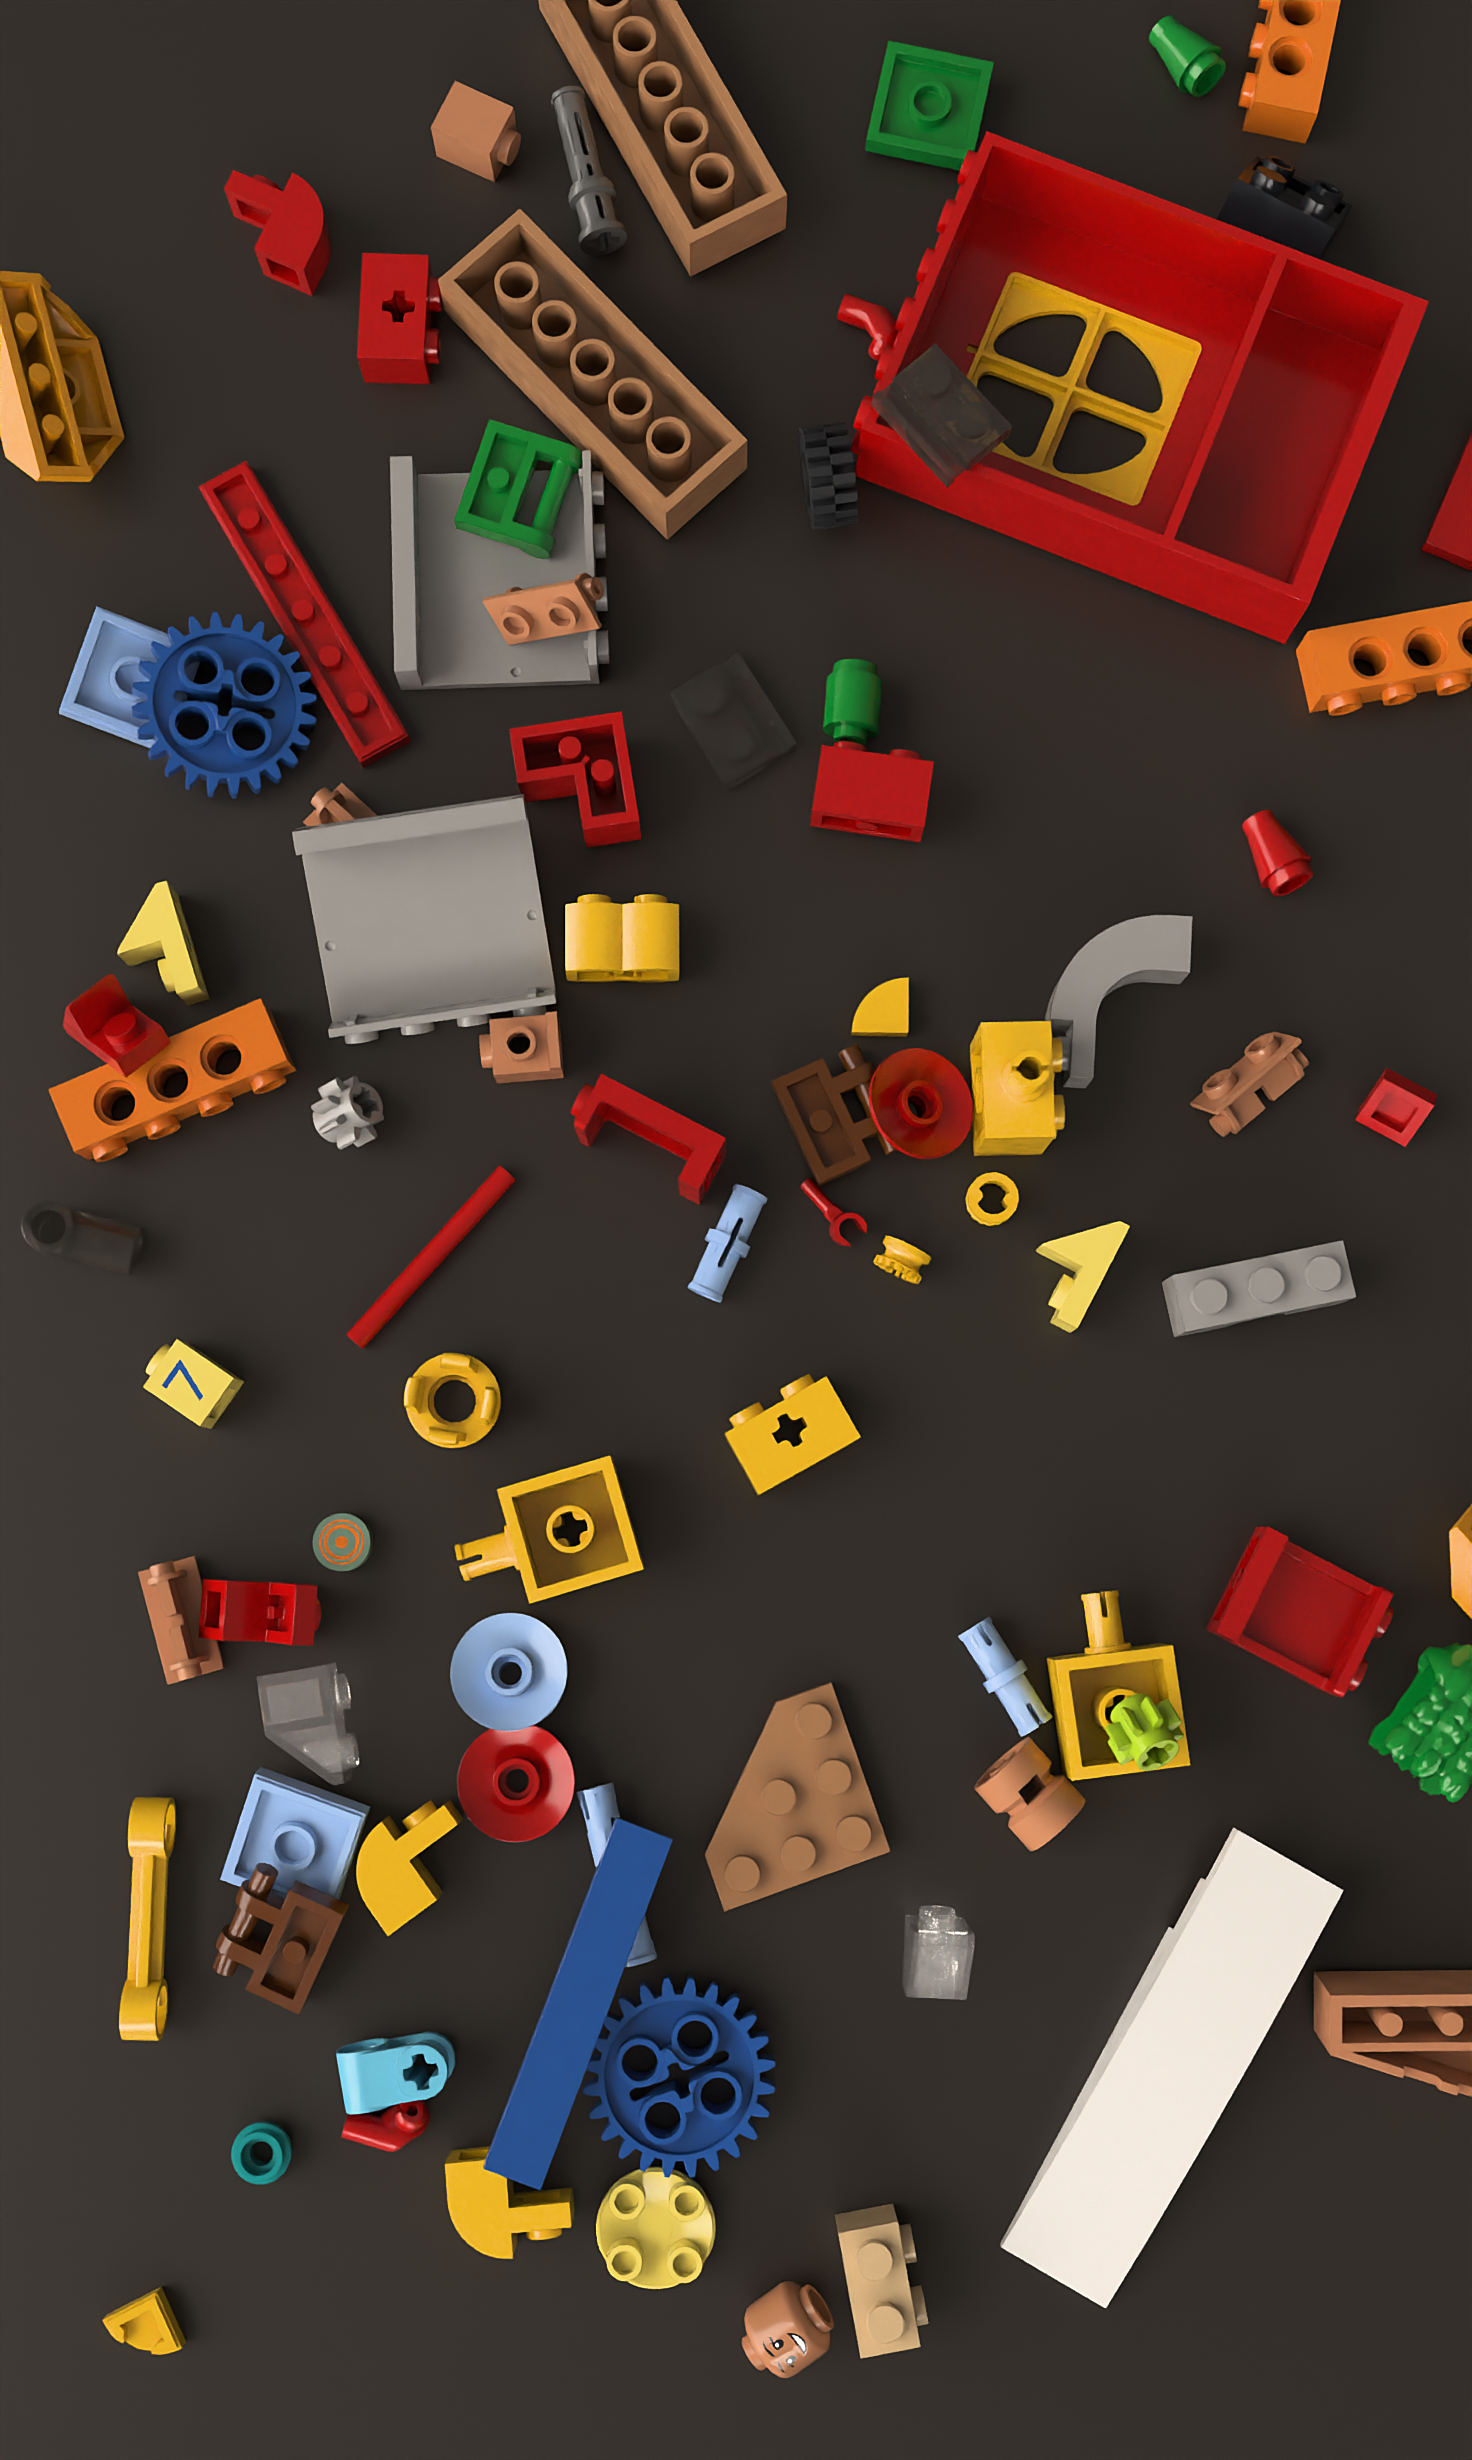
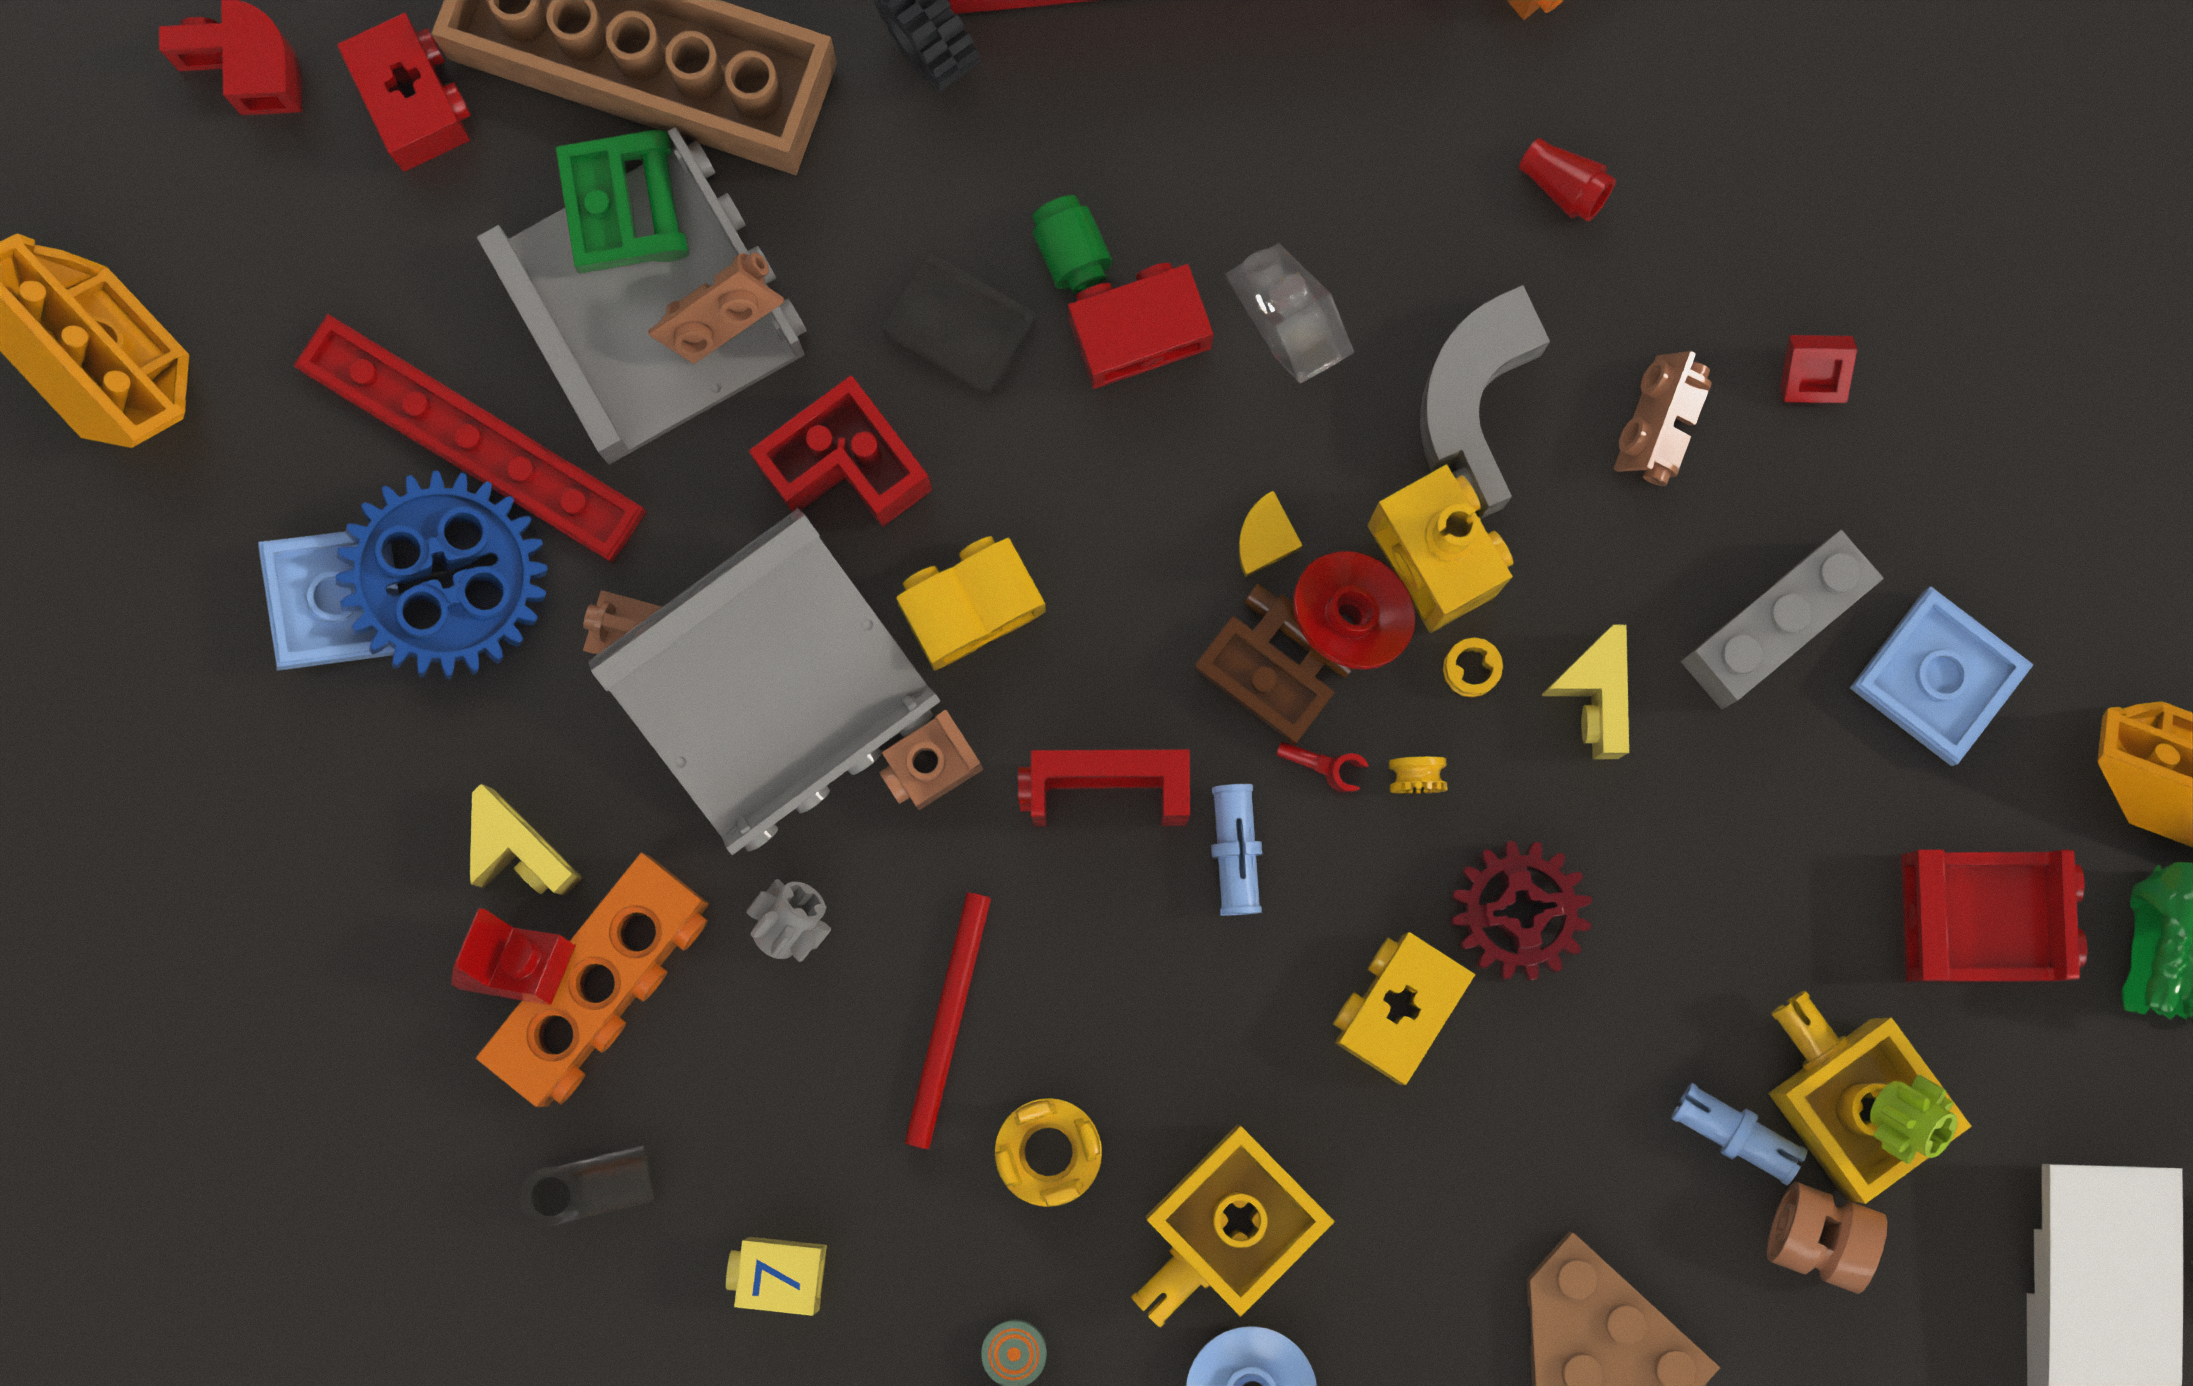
camera: 25 degrees left, 0 degrees up
(934, 1384) = (1527, 940): none -> dark red gear
(997, 845) = (1291, 312): none -> clear slope
(1364, 1402) = (1941, 676): none -> light blue plate

